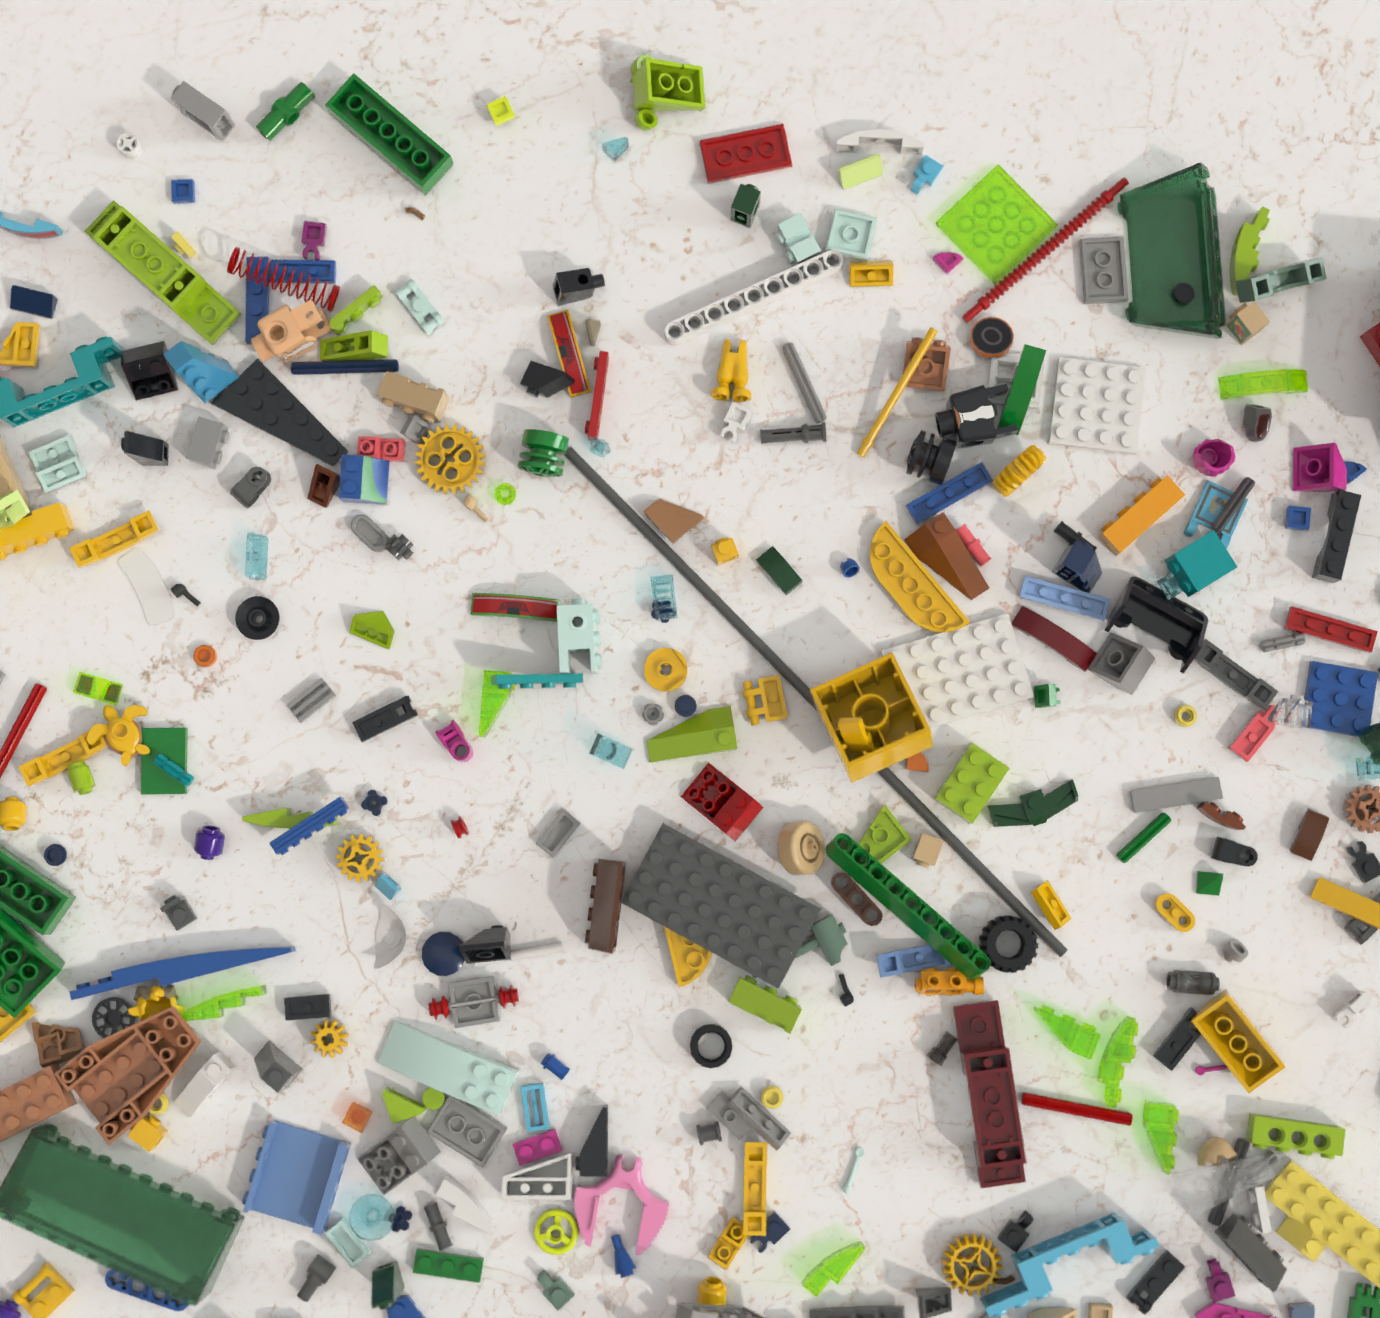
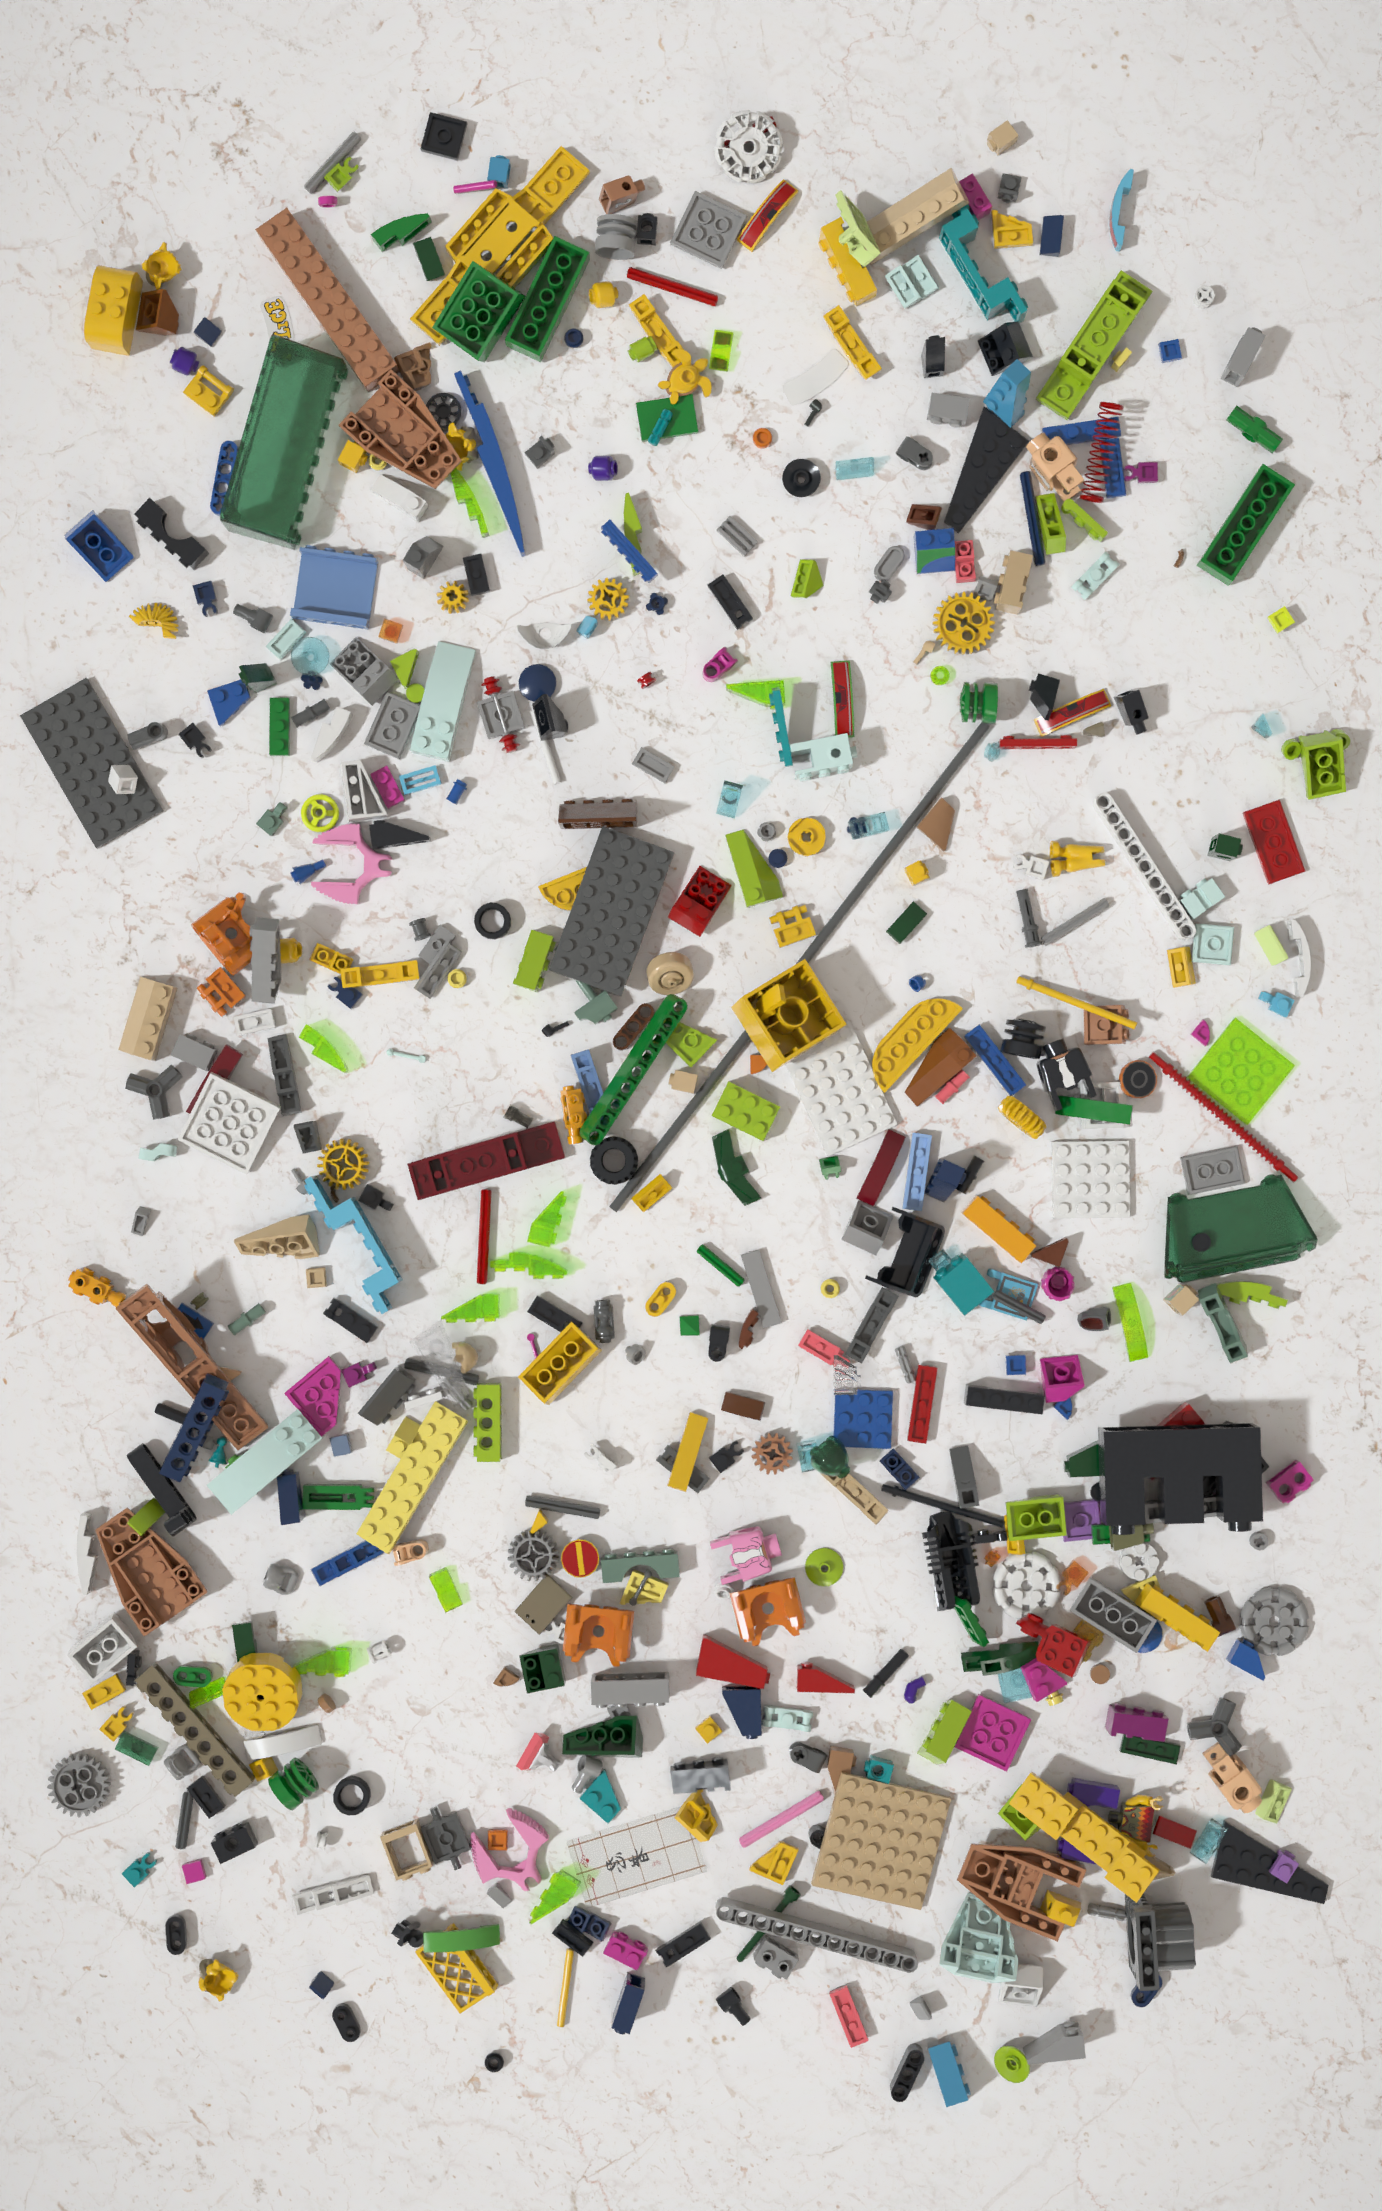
camera: 75 degrees right, 5 degrees up
(1175, 459) = (1052, 1253): none -> copper slope

